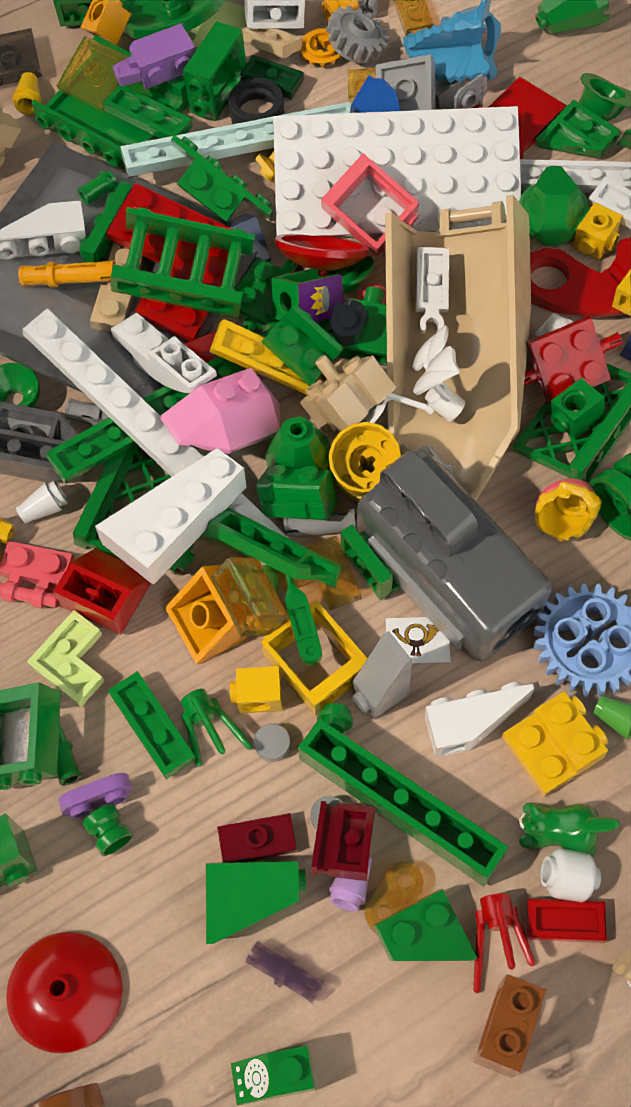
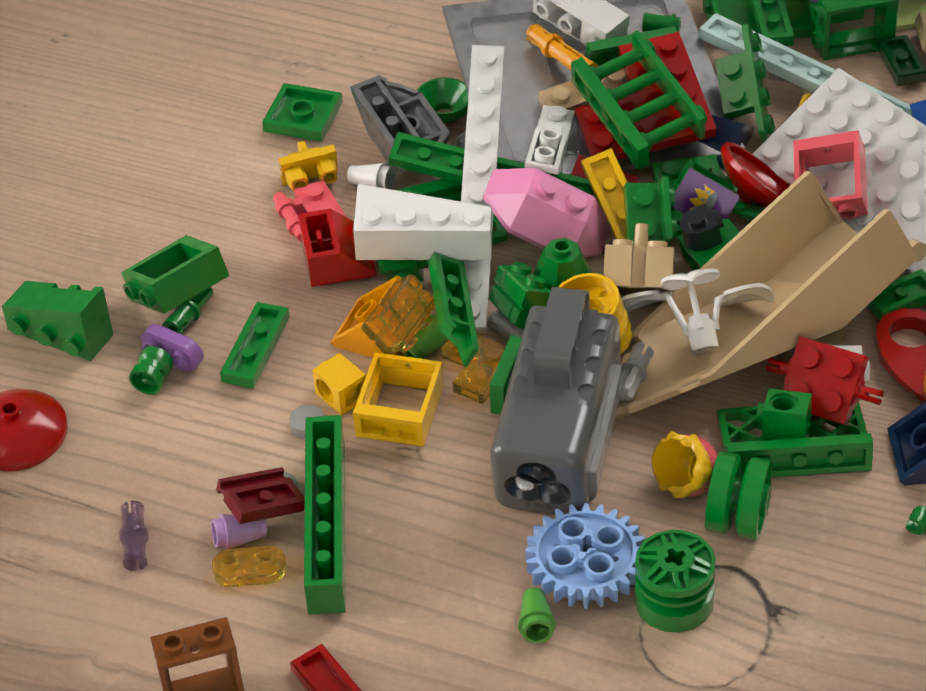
camera: 50 degrees right, 20 degrees down
(61, 662) = (259, 263): yellowish green plate -> none
(200, 710) = (290, 364): green plant -> none
(247, 893) = (169, 471): green slope -> none
(255, 89) = (864, 54): black tyre -> none
(257, 839) = (220, 456): dark red plate -> none
(273, 1075) = (54, 576): green slope -> none
(302, 624) = (410, 364): green piece -> none
(337, 716) = (360, 441): green plate -> none
(383, 677) = (414, 440): light grey slope -> none
(420, 639) = (473, 456): white sticker -> none
(425, 932) = (235, 591): green wing -> none
(432, 285) = (802, 262): white plate -> none
(465, 722) = (438, 521): white slope -> none
(500, 916) = (288, 631): red plant -> none
(556, 742) = (472, 588): yellow plate -> none
(568, 827) = (399, 628): green animal -> none
(570, 875) = (363, 654): white head -> none

